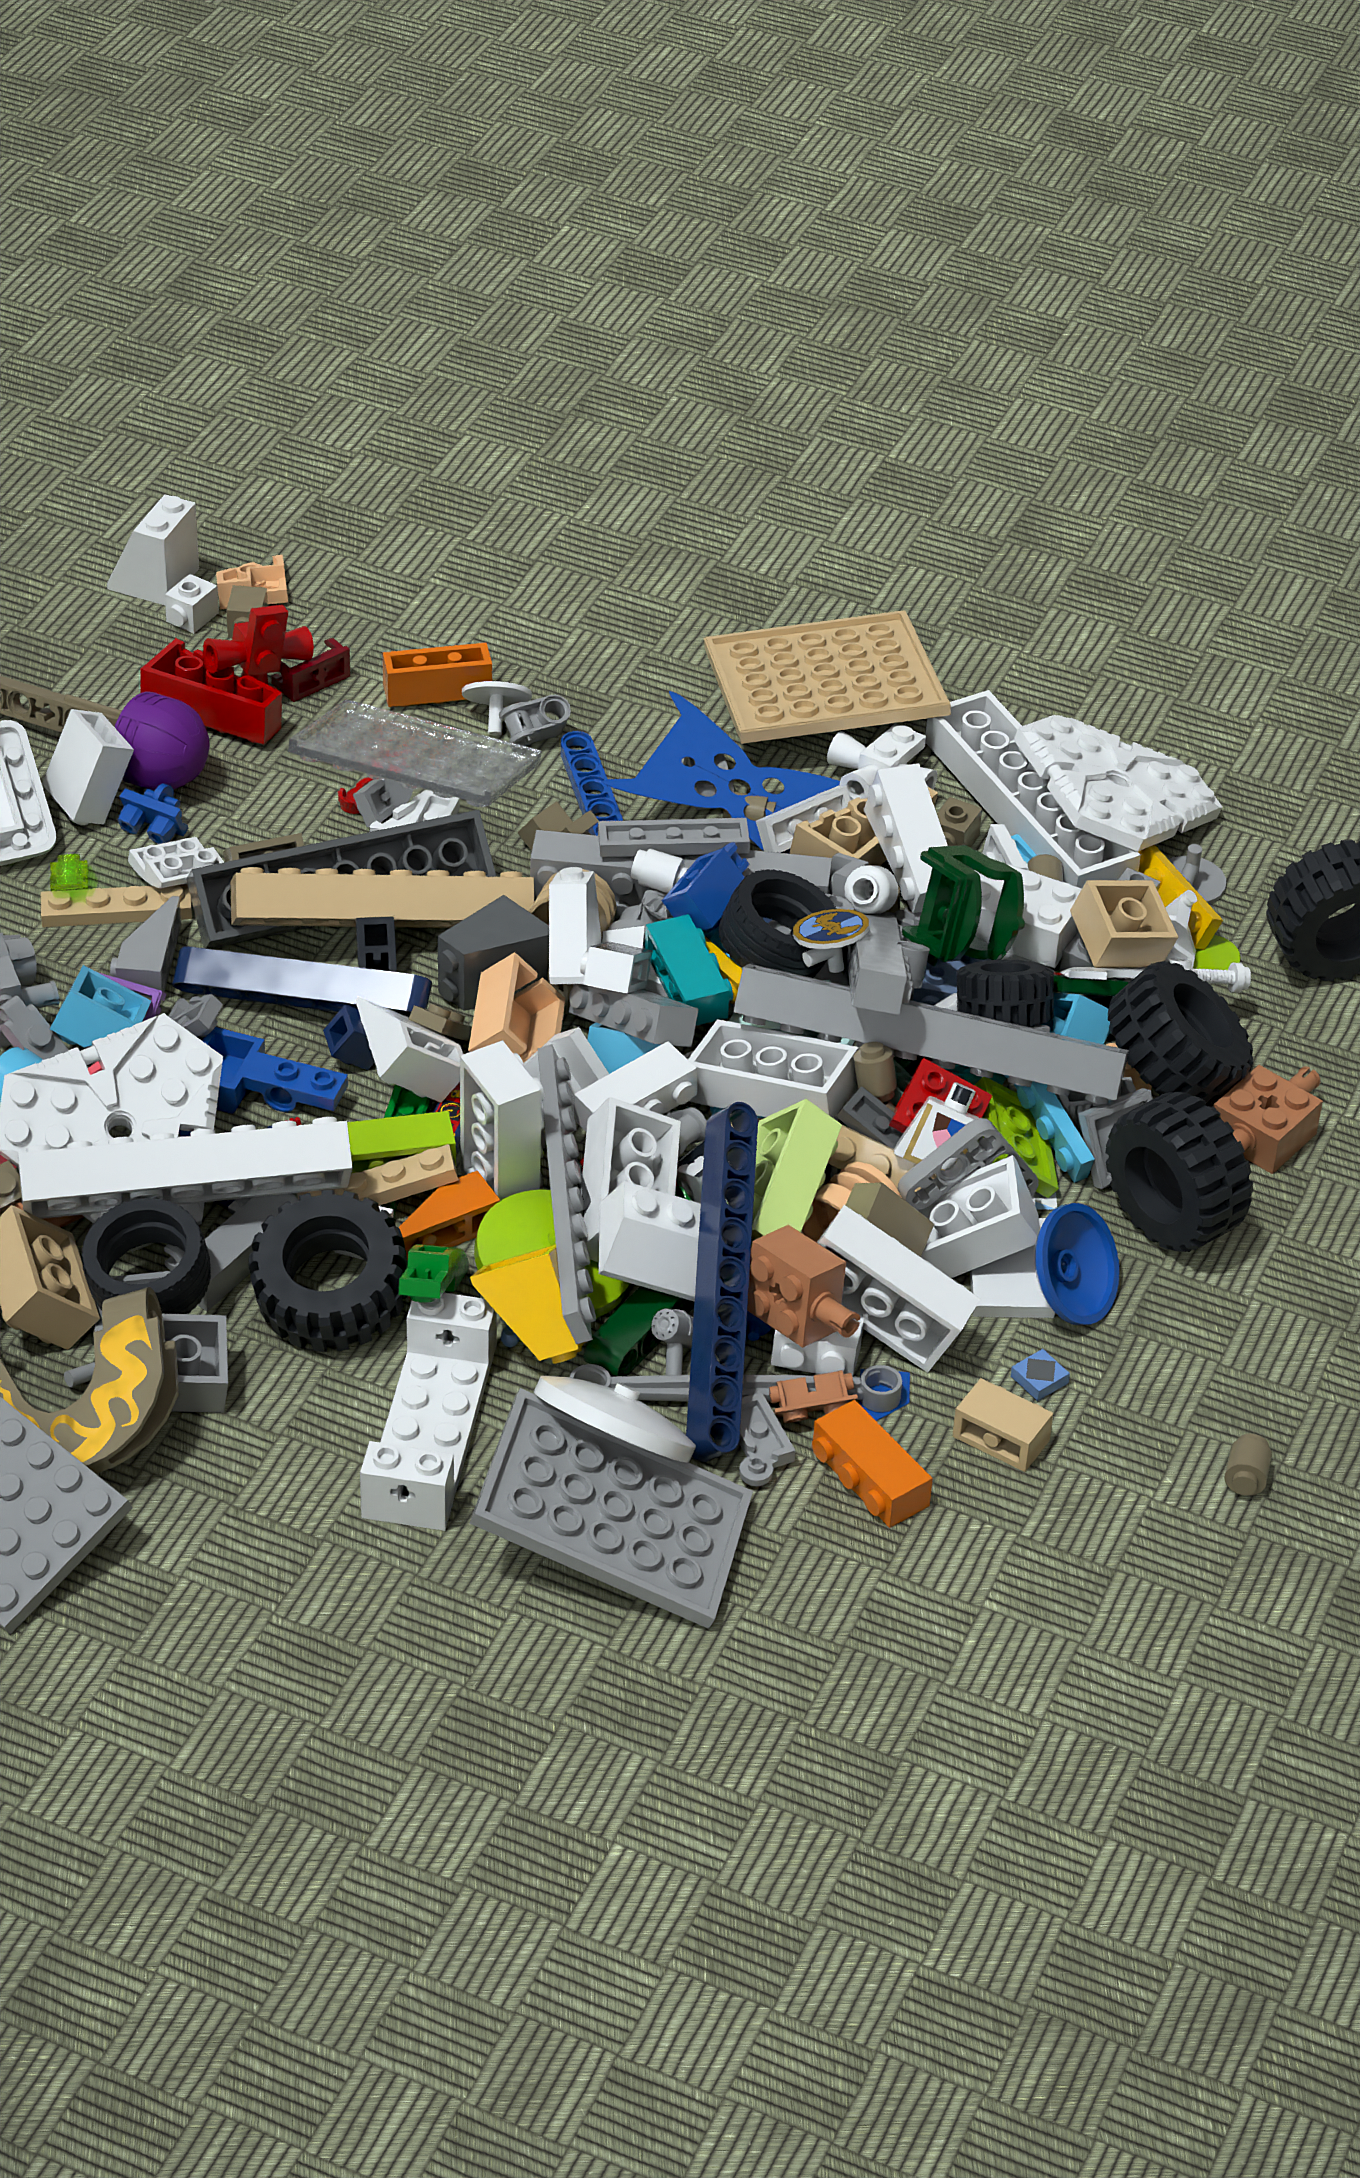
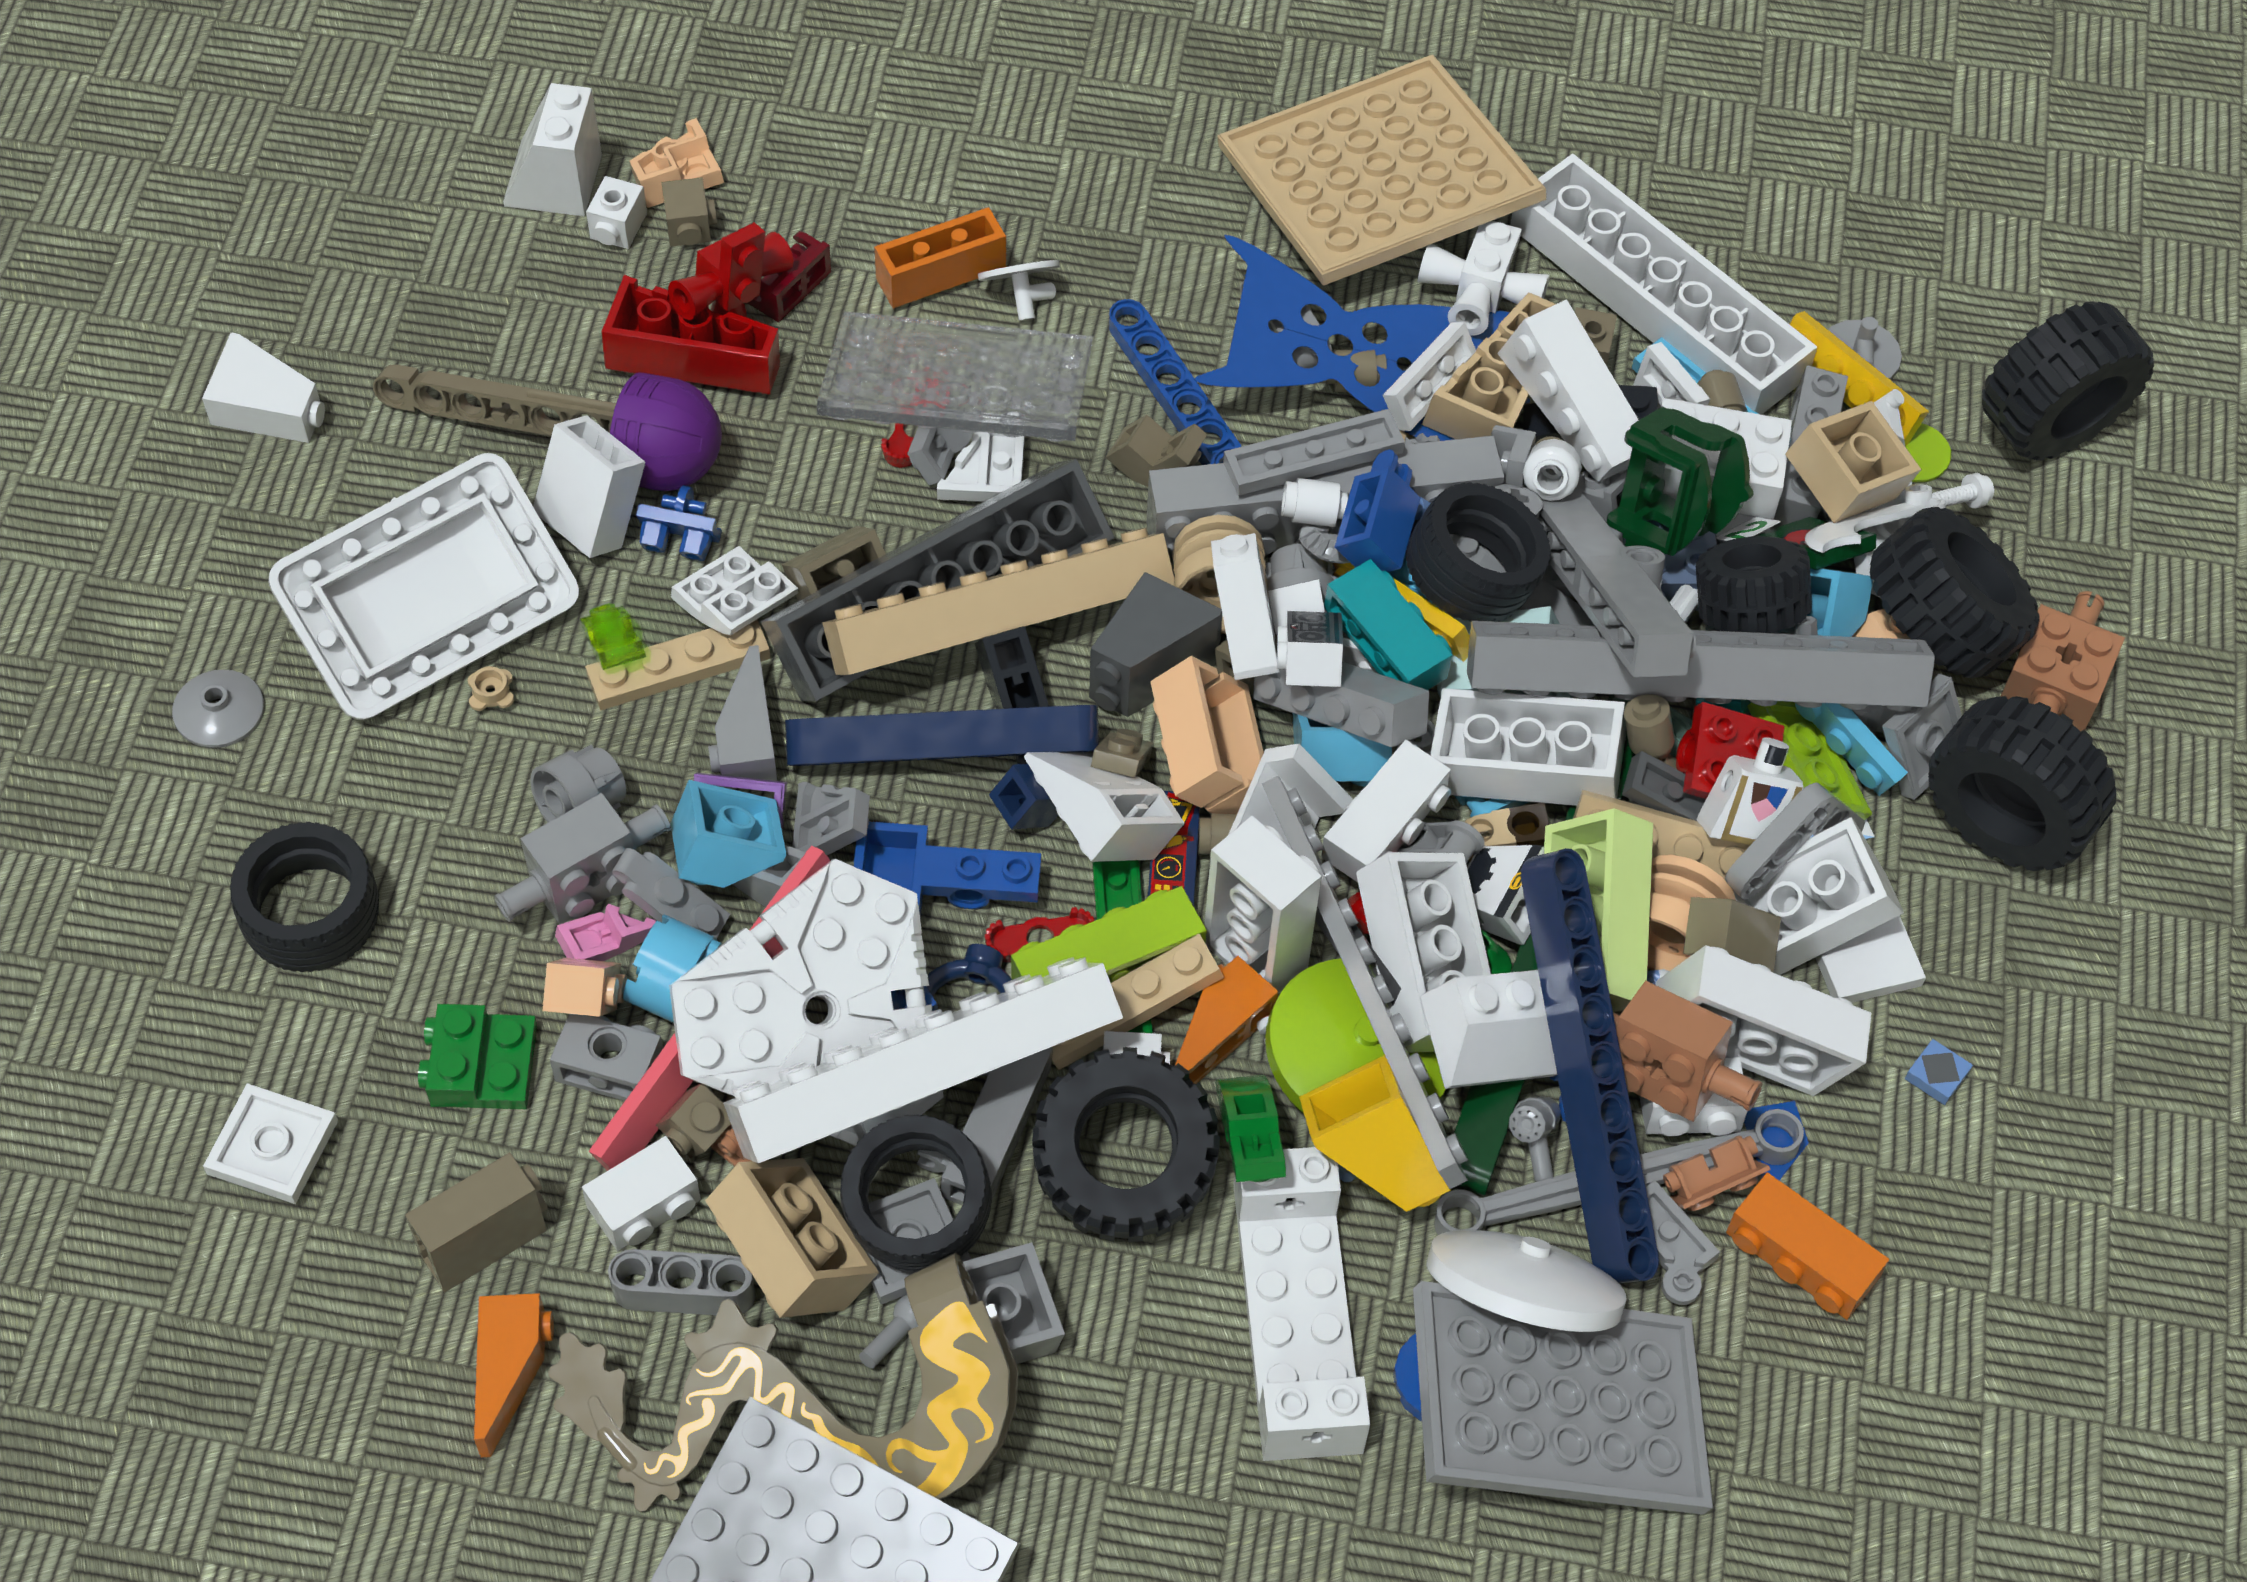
camera: 15 degrees left, 15 degrees up
(528, 720) = (1069, 300): light grey piece -> none
(828, 933) = (1552, 560): shield -> none
(1002, 1424) = (1929, 1155): tan brick -> none
(1077, 1264) = (1942, 927): blue dish -> none
(1114, 786) = (1754, 253): white plate -> none
(1248, 1465) = (2205, 1142): dark tan brick -> none

